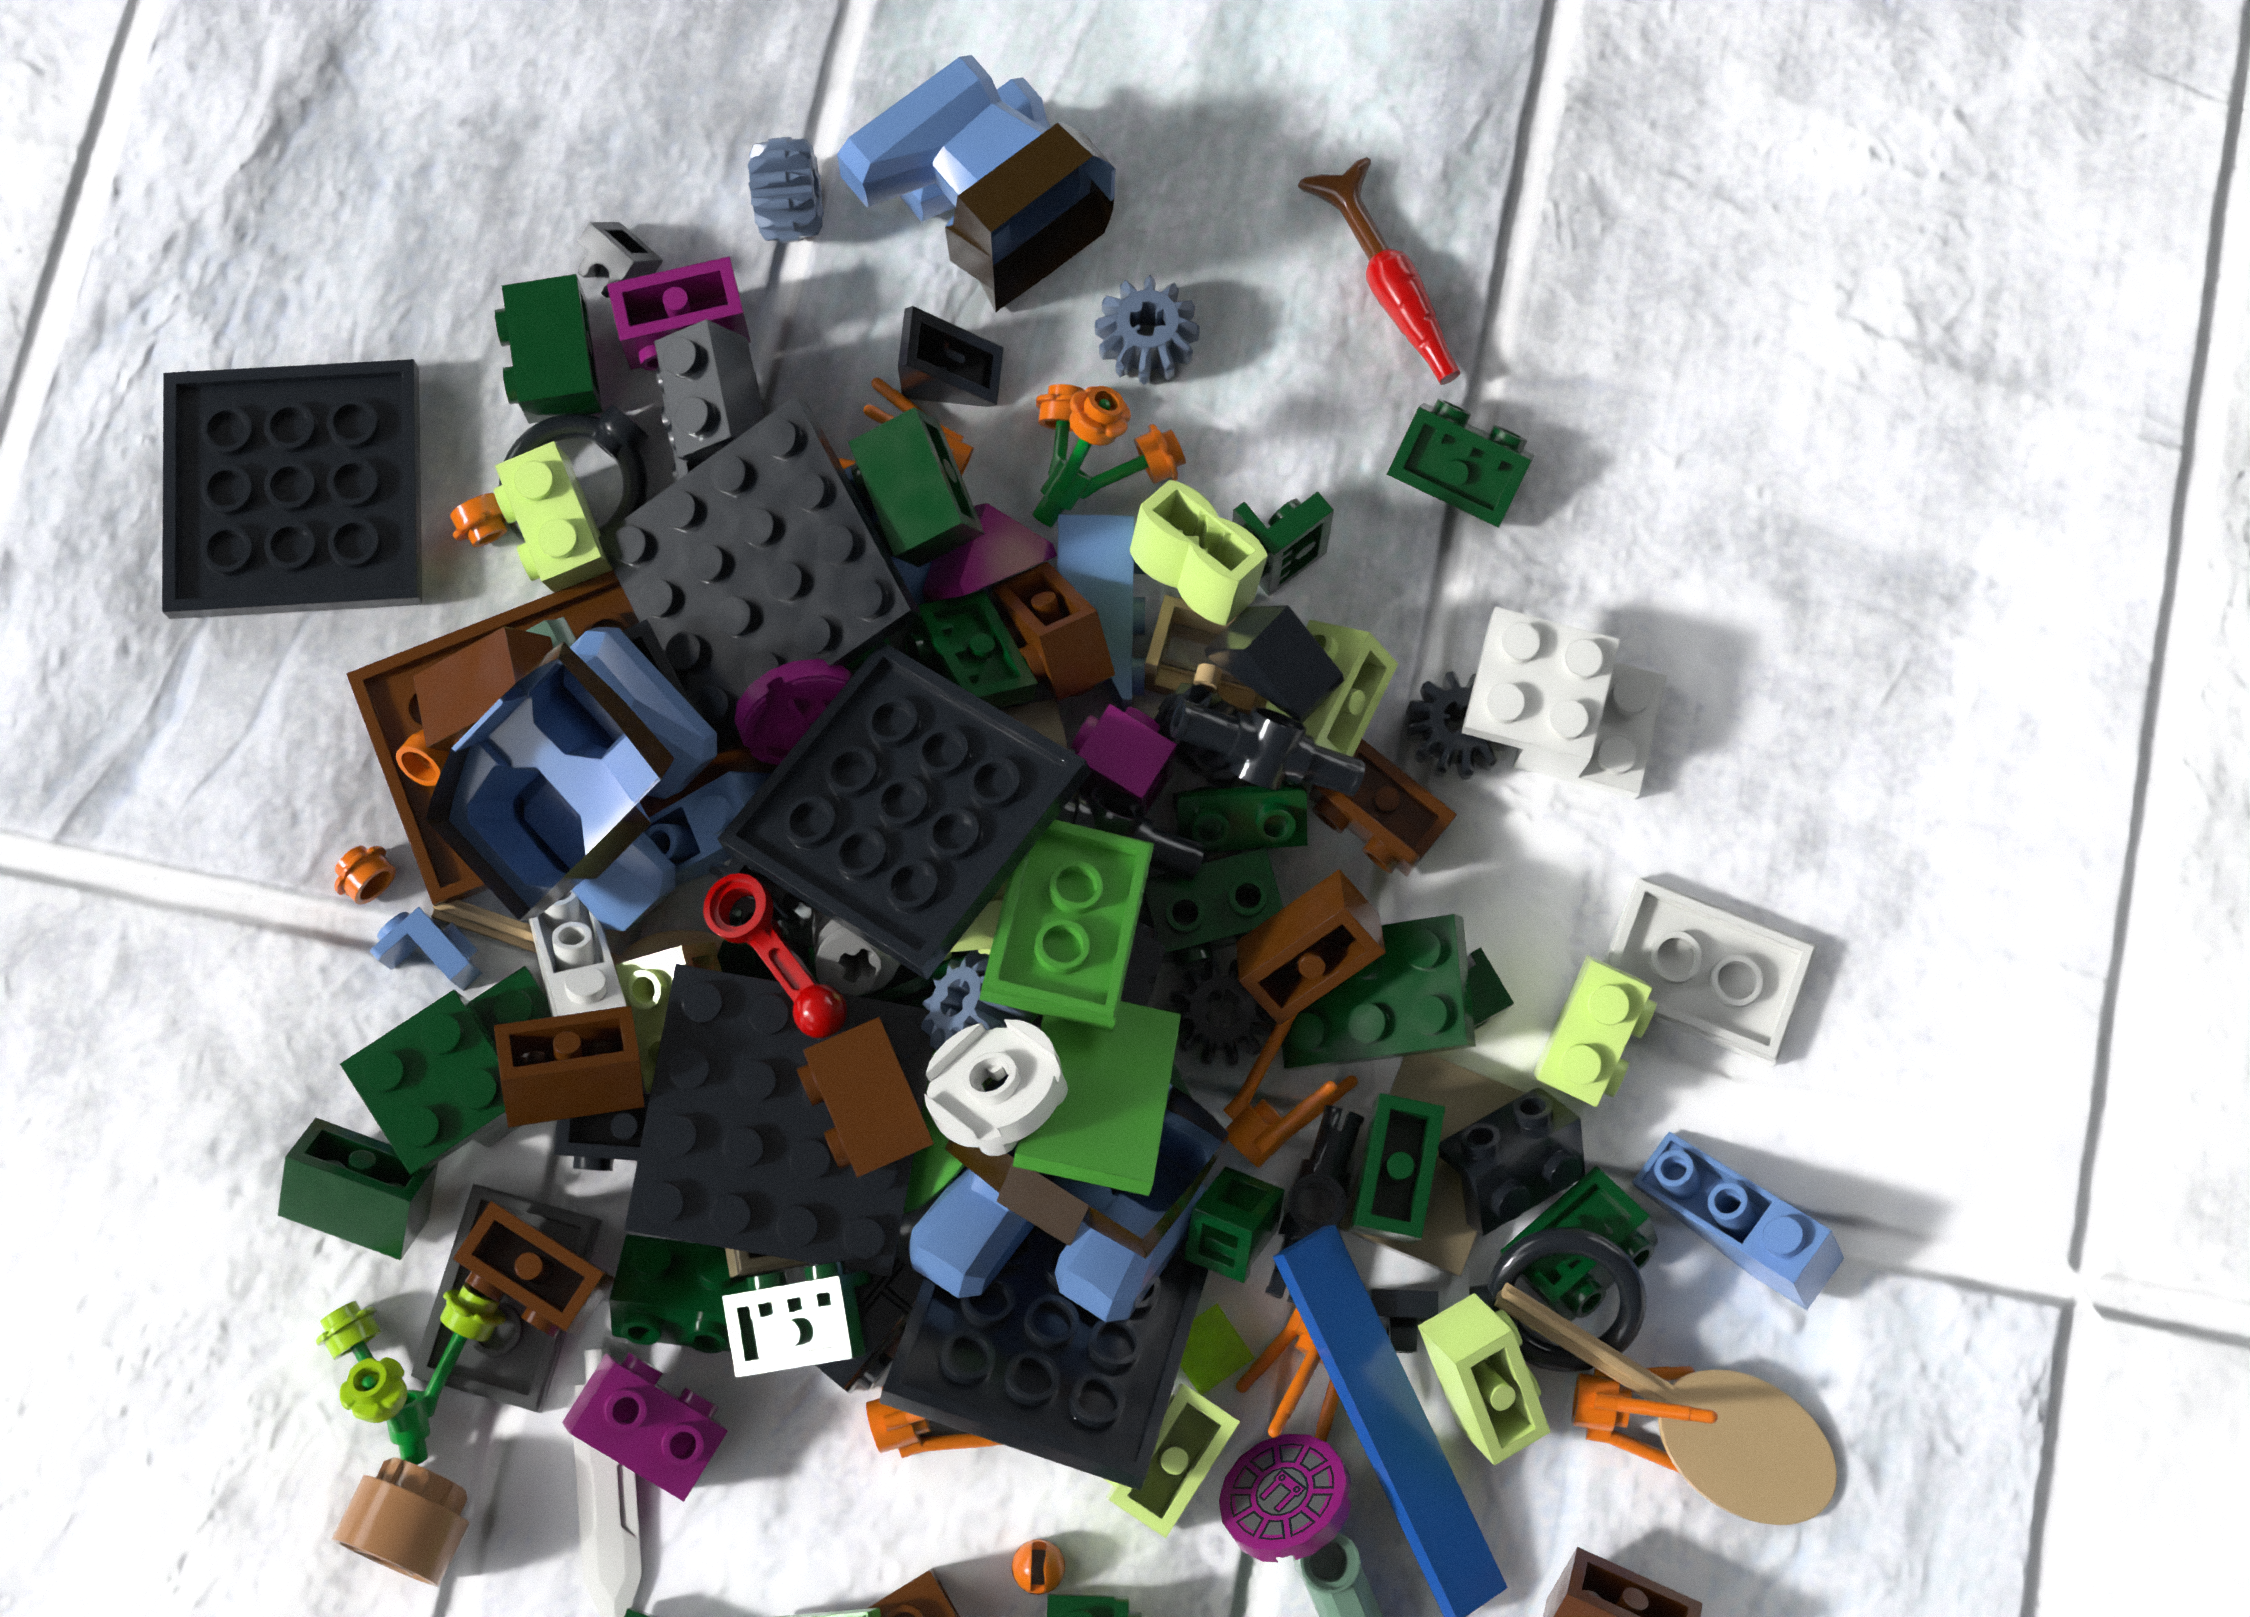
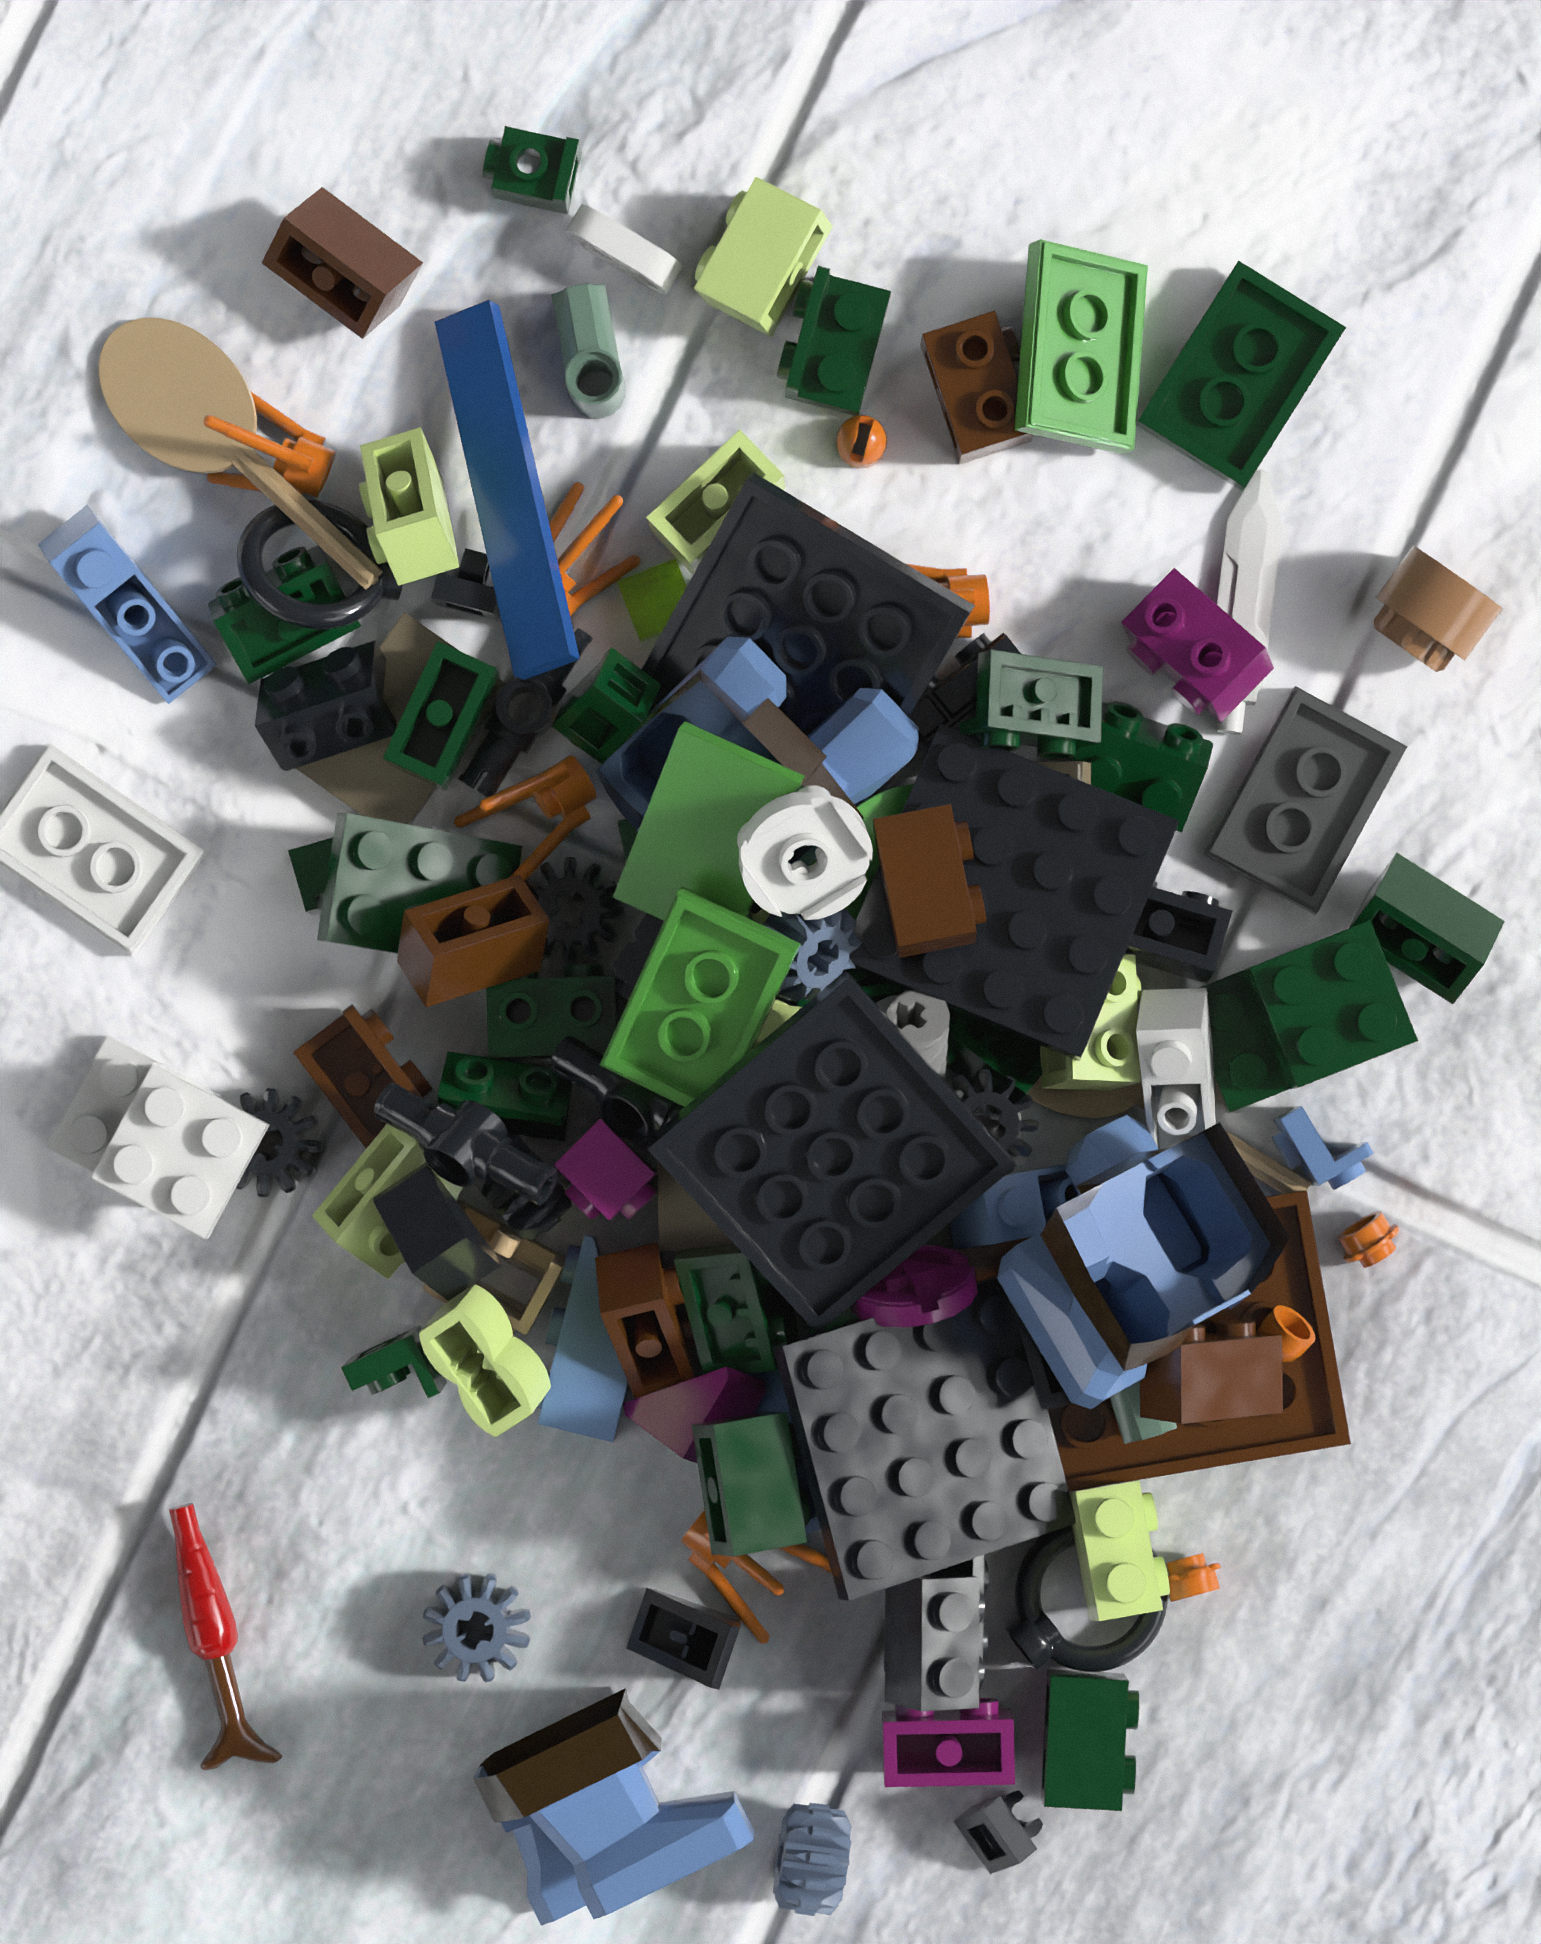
camera: 160 degrees left, 10 degrees up
(291, 489) = (1372, 1654): black plate -> none
(377, 1388) = (1432, 728): lime plant -> none
(533, 1269) = (1272, 808): reddish brown brick -> none
(569, 1066) = (1199, 979): reddish brown brick -> none
(817, 1008) = (954, 978): red piece -> none
(1097, 419) = (554, 1514): plant -> none
(1285, 1497) = (619, 444): magenta tile -> none
(1461, 461) = (191, 1415): dark green bracket -> none
(1593, 1031) = (218, 809): yellowish green brick -> none

